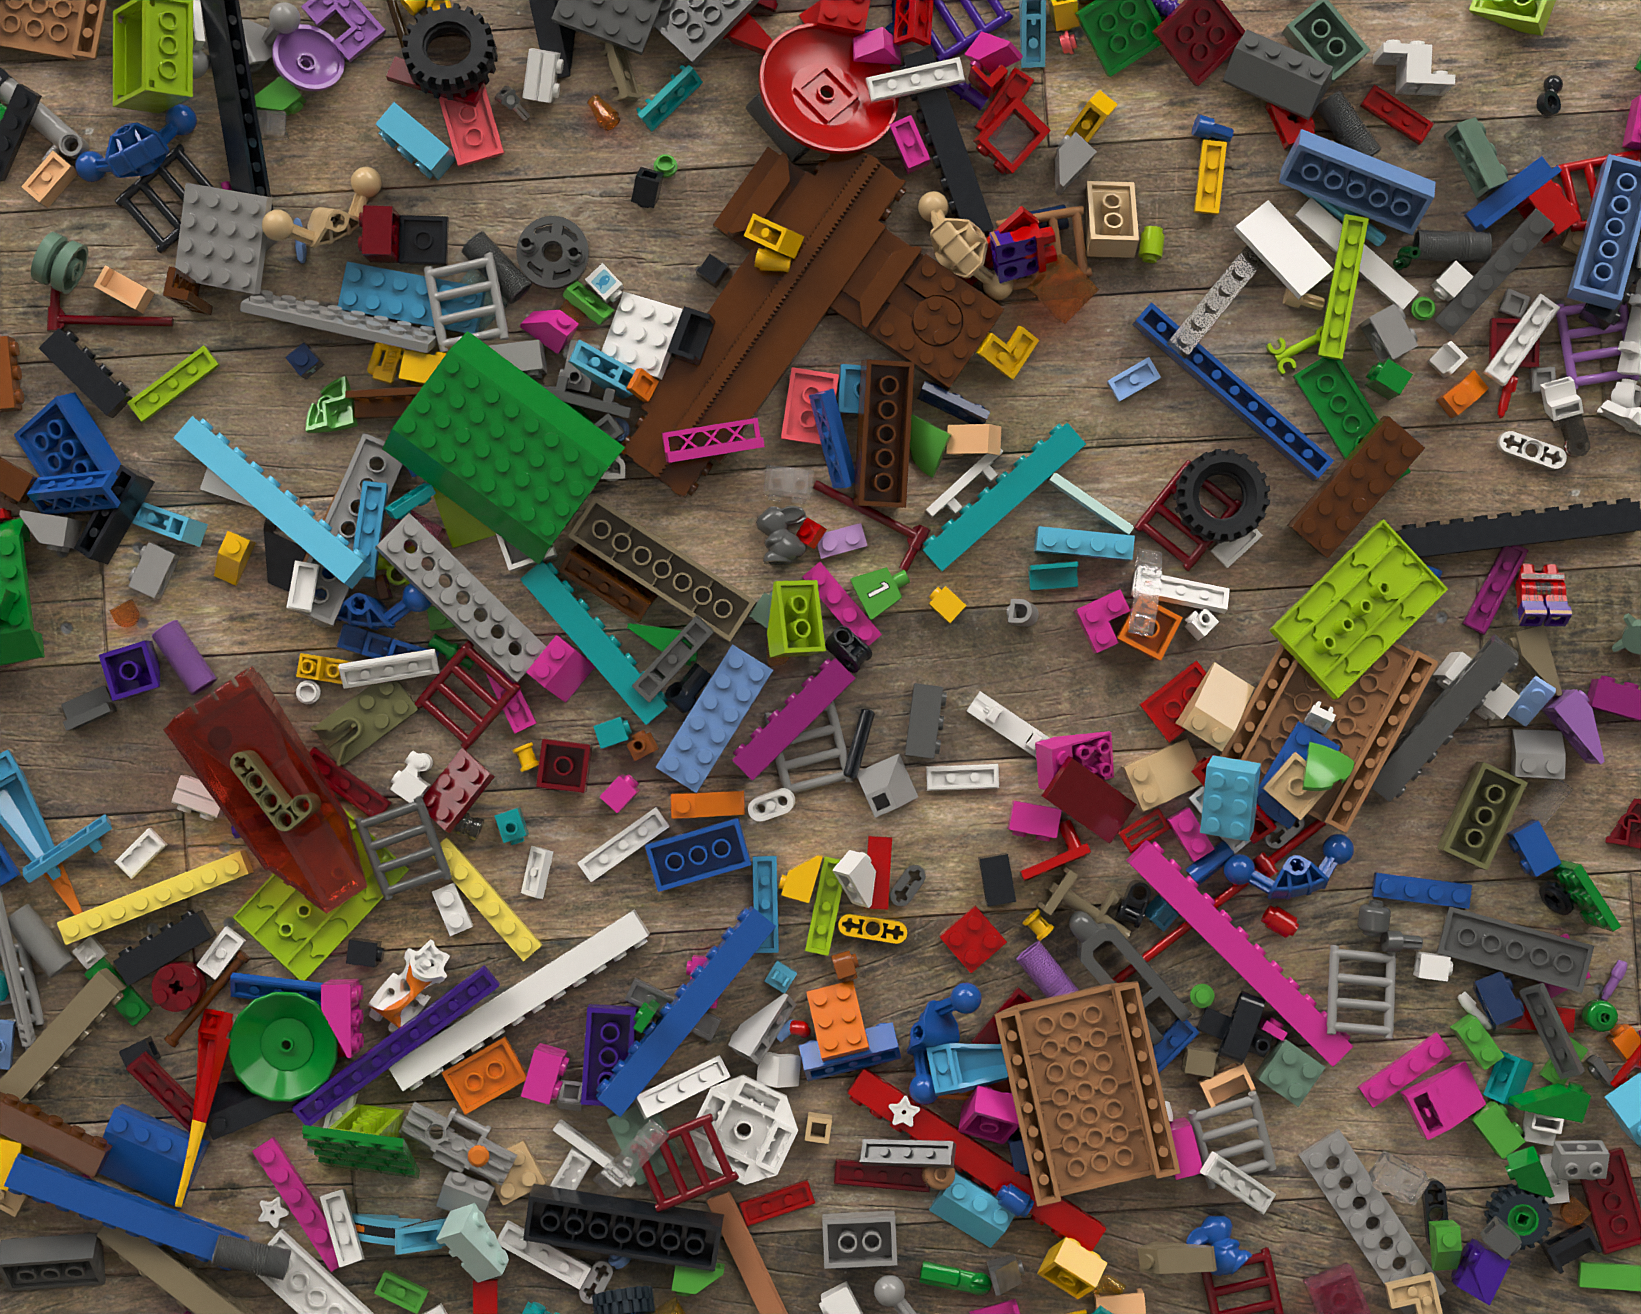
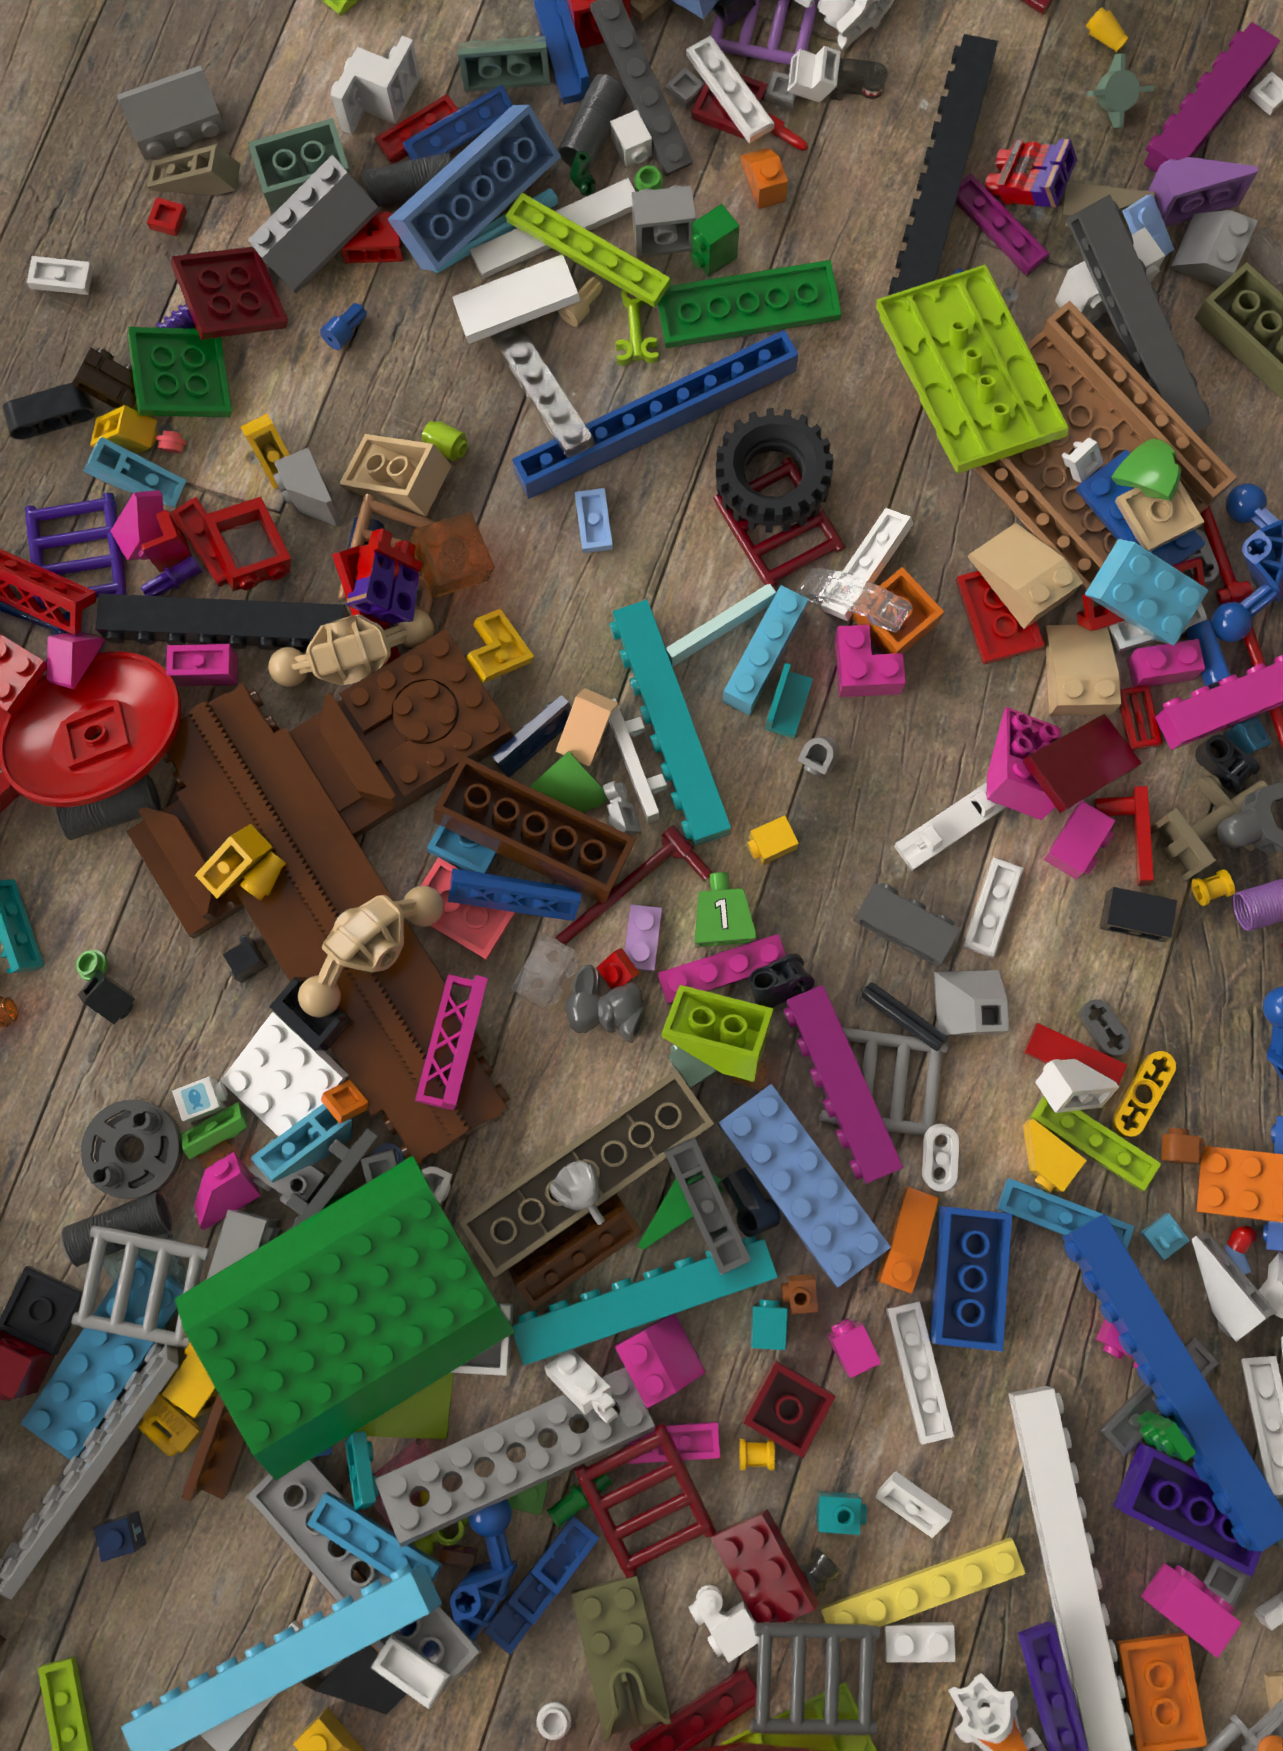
camera: 65 degrees left, 10 degrees down
(319, 668) = (531, 1685): yellow slope -> none
(332, 409) = (199, 1525): bright green brick -> none
(389, 668) = (567, 1595): white tile -> none
(523, 623) = (582, 1385): none -> white plate
(648, 567) = (578, 1188): none -> light grey piece
(755, 354) = (368, 941): none -> tan piece
(915, 80) = (128, 624): white tile -> none
(923, 490) = (621, 811): none -> light grey plate
(973, 939) = (1201, 974): red plate -> none
(1200, 623) = (915, 554): white plate -> none
(1210, 177) = (397, 348): yellow plate -> none
(1229, 552) = (842, 492): white tile -> none
(1356, 486) = (824, 320): reddish brown brick -> none
(1409, 146) = (460, 125): none -> blue tile
(1447, 359) = (718, 174): white panel -> none
(1550, 450) = (860, 117): white beam -> none

